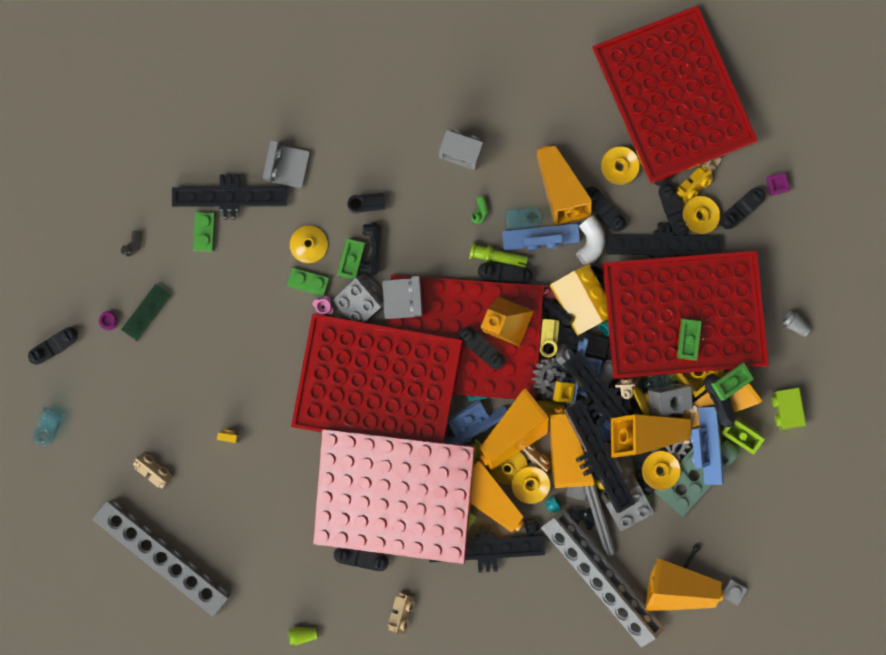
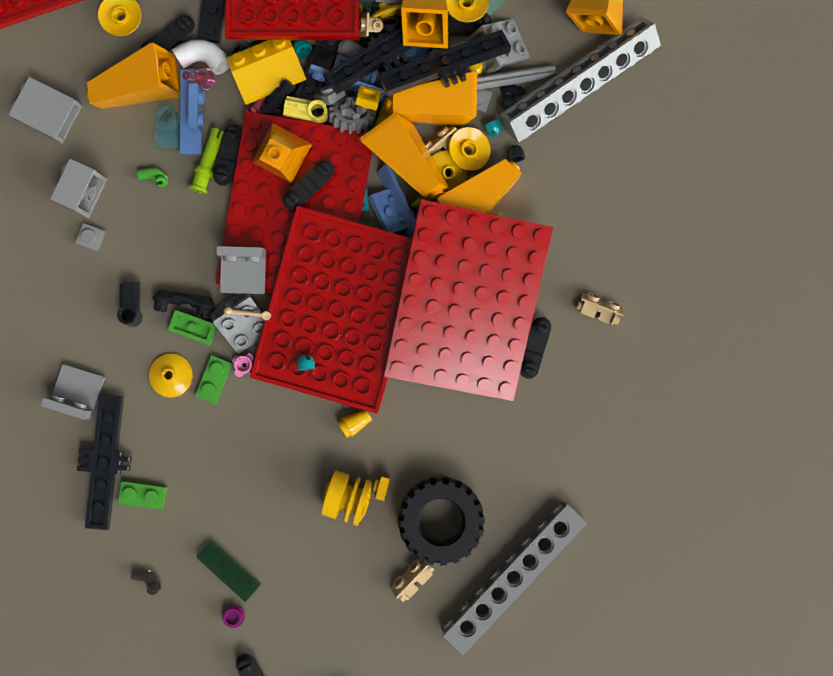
camera: 85 degrees left, 0 degrees up
(178, 490) = (441, 551): none -> black tyre
(216, 407) = (345, 497): none -> yellow wheel
(281, 407) = (354, 423): none -> yellow cone
(301, 635) = (615, 423): lime cone -> none
(328, 360) = (305, 362): none -> teal hinge
(365, 322) = (265, 315): none -> tan hinge
(421, 161) = (90, 237): none -> light grey plate
(489, 548) = (536, 203): black hinge -> none
(528, 110) = (45, 110): none -> light grey brick
(569, 245) = (204, 77): none -> clear pink cone

